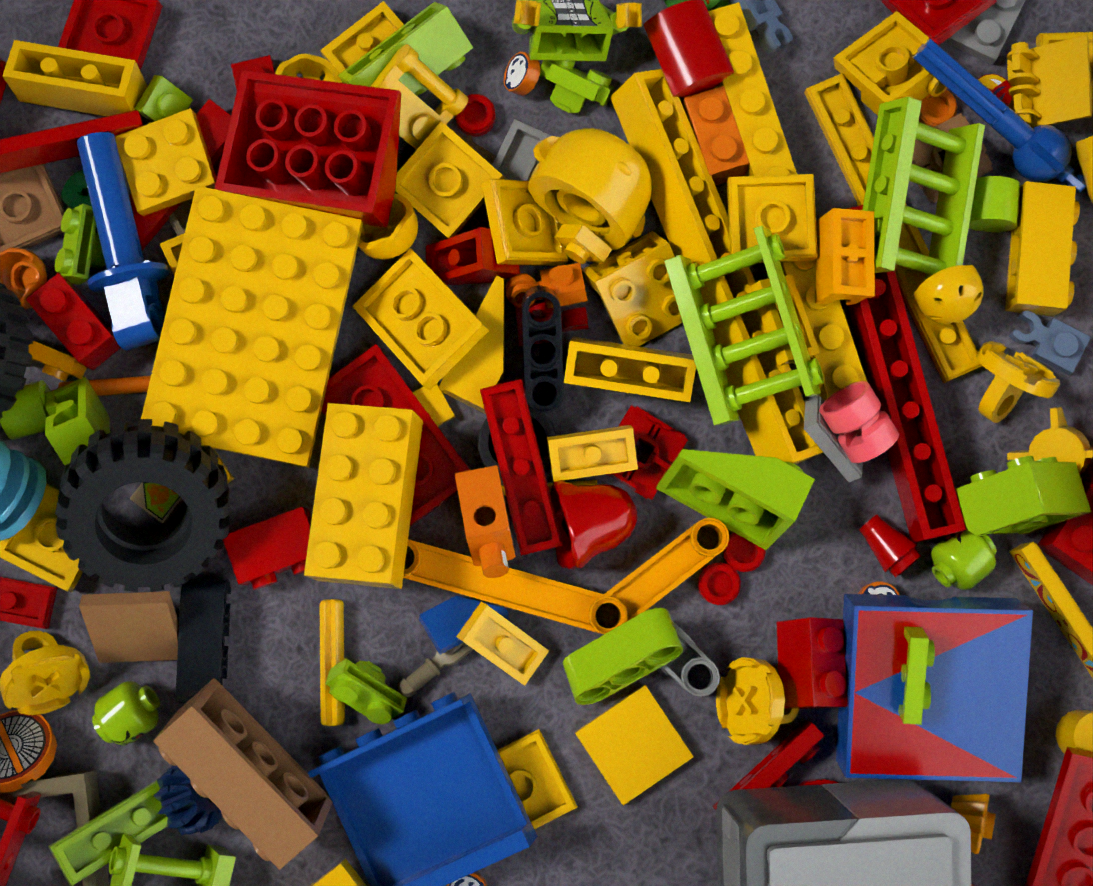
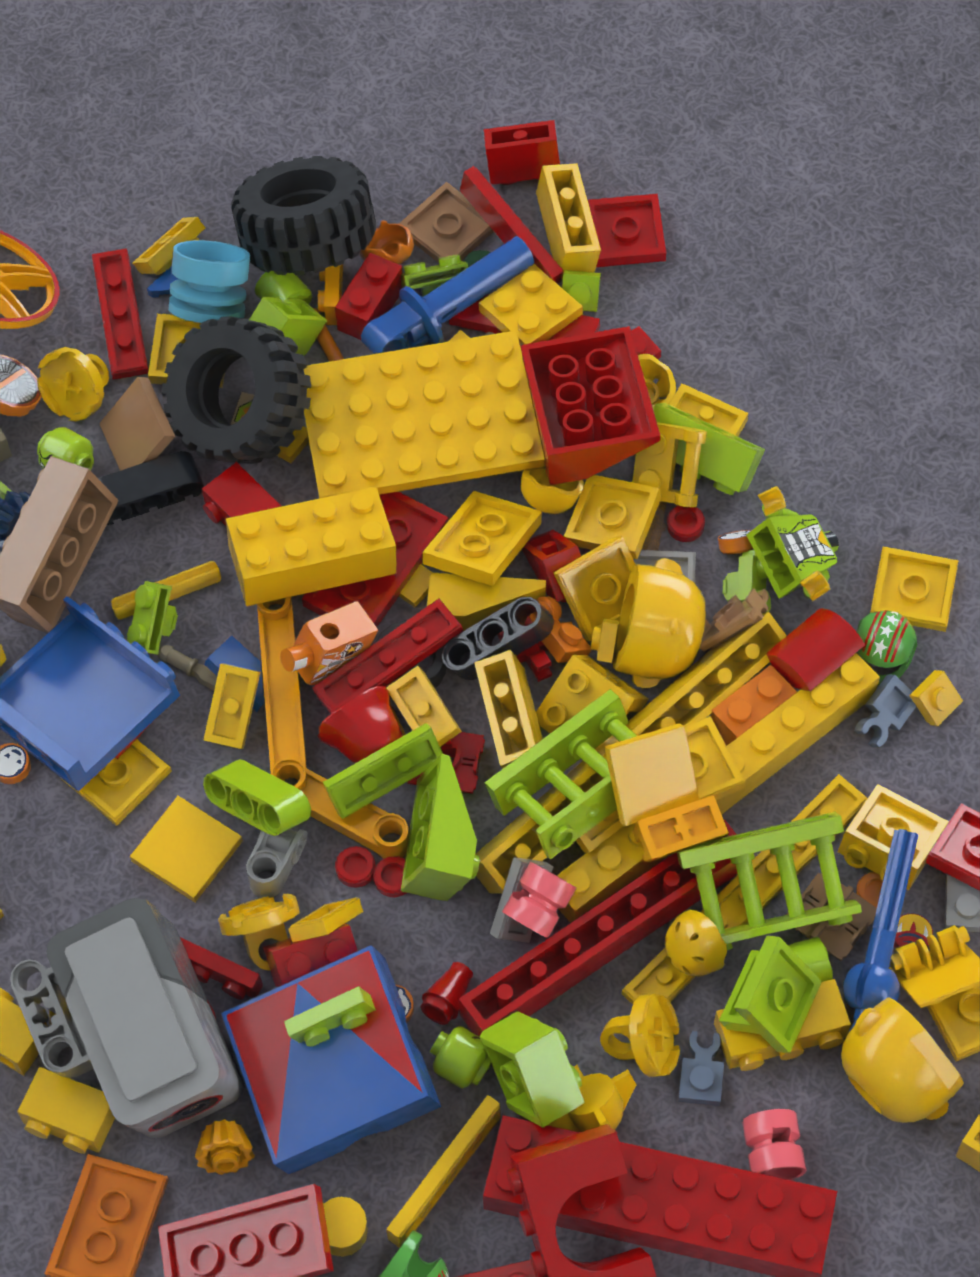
camera: 70 degrees right, 20 degrees down
(620, 105) = (734, 618): none -> medium nougat piece
(650, 518) = (383, 771): none -> lime tile
(784, 637) = (325, 919): none -> yellow tile
(792, 257) = (651, 773): none -> yellow tile
(1035, 249) = (772, 995): none -> lime bracket

